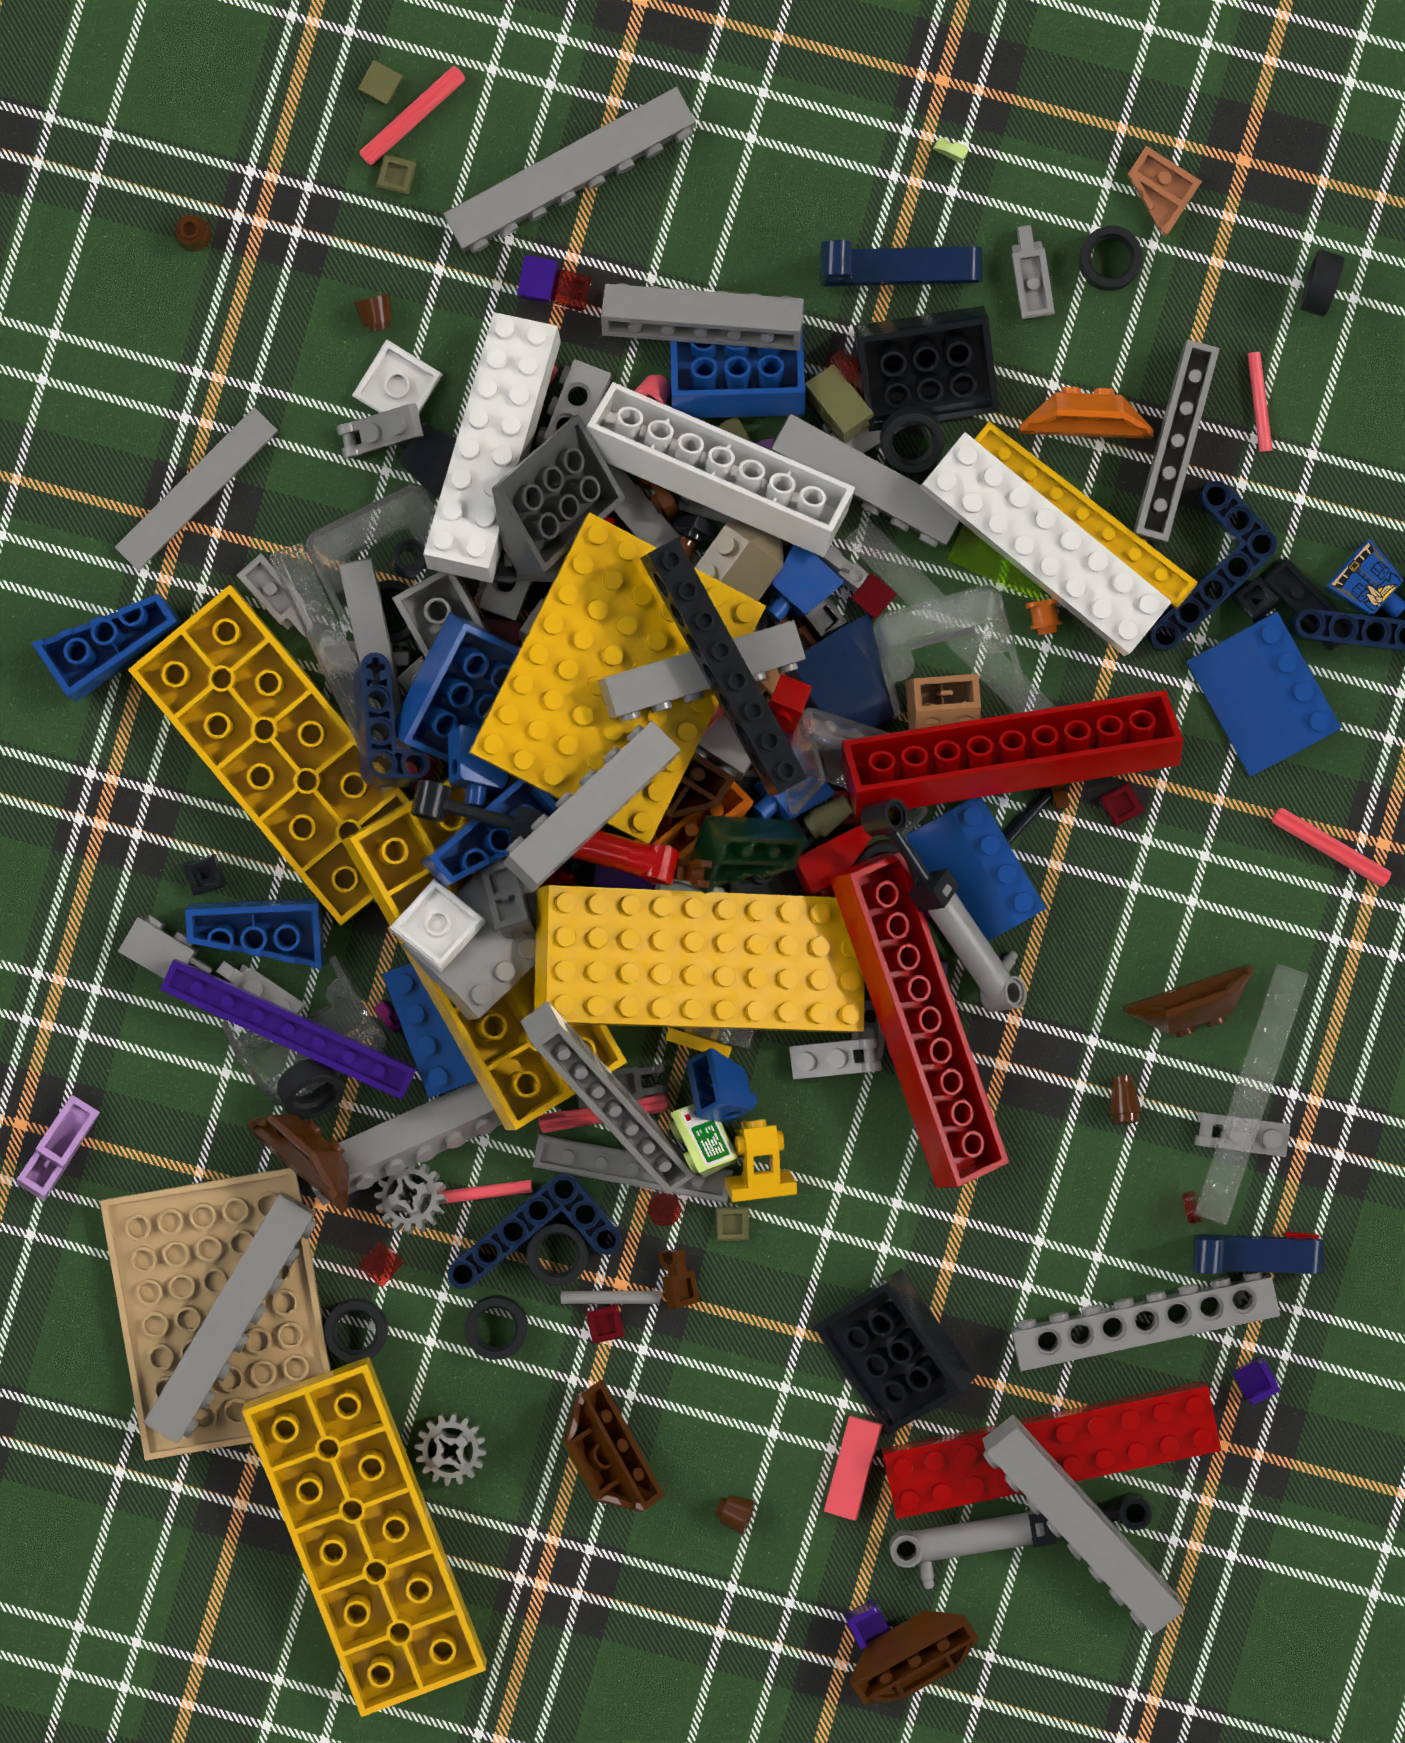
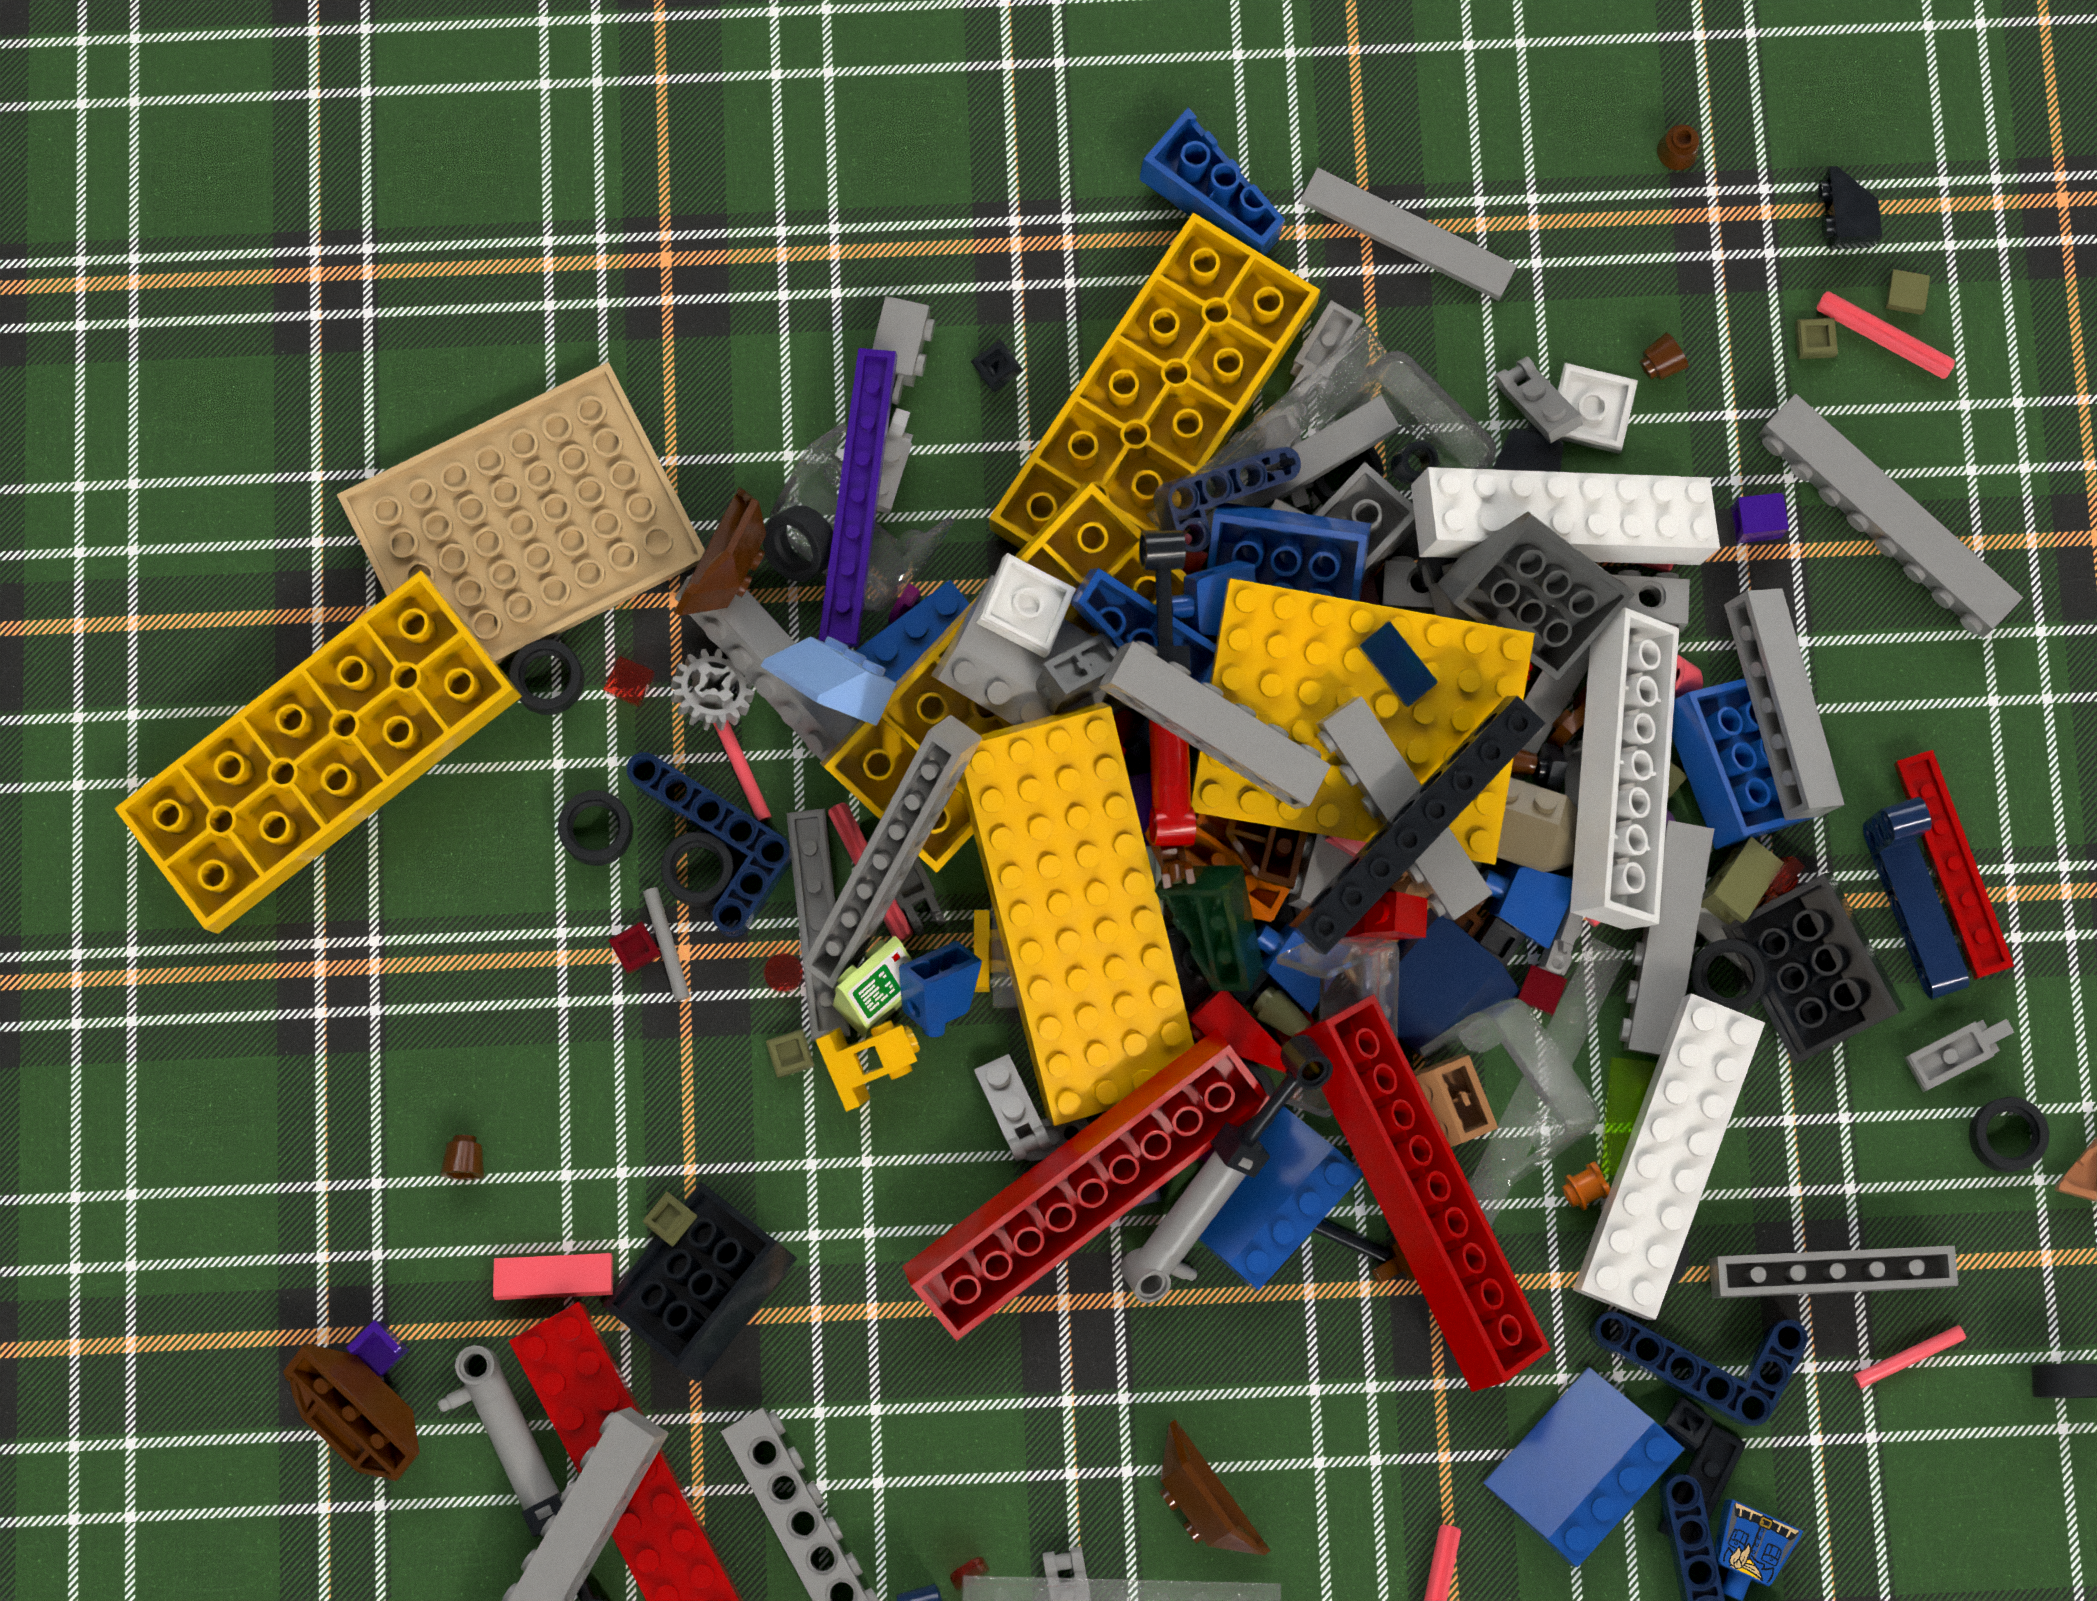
camera: 75 degrees right, 10 degrees down
(57, 1148) = (651, 301): lavender slope -> none
(229, 1318) = (521, 534): light grey brick -> none
(266, 928) = (960, 450): blue wedge -> none
(296, 107) = (1850, 211): none -> black slope
(444, 1101) = (834, 677): none -> light blue slope
(461, 1460) = (435, 831): light grey gear -> none
(571, 290) = (1760, 556): clear red plate -> none
(583, 636) = (1397, 664): none -> clear blue tile
(608, 1453) = (489, 990): reddish brown wedge -> none
(681, 1283) = (704, 1015): reddish brown plate -> none
(836, 1361) = (669, 1218): none -> olive tile
(877, 222) = (1955, 867): none -> red plate
(953, 151) = (2062, 924): yellowish green tile -> none
(1087, 416) = (1825, 1163): orange wedge -> none
(1102, 526) = (1707, 1227): yellow tile -> none
(1121, 804) = (1402, 1344): dark red tile -> none
(1124, 1101) = (1066, 1455): reddish brown cone -> none

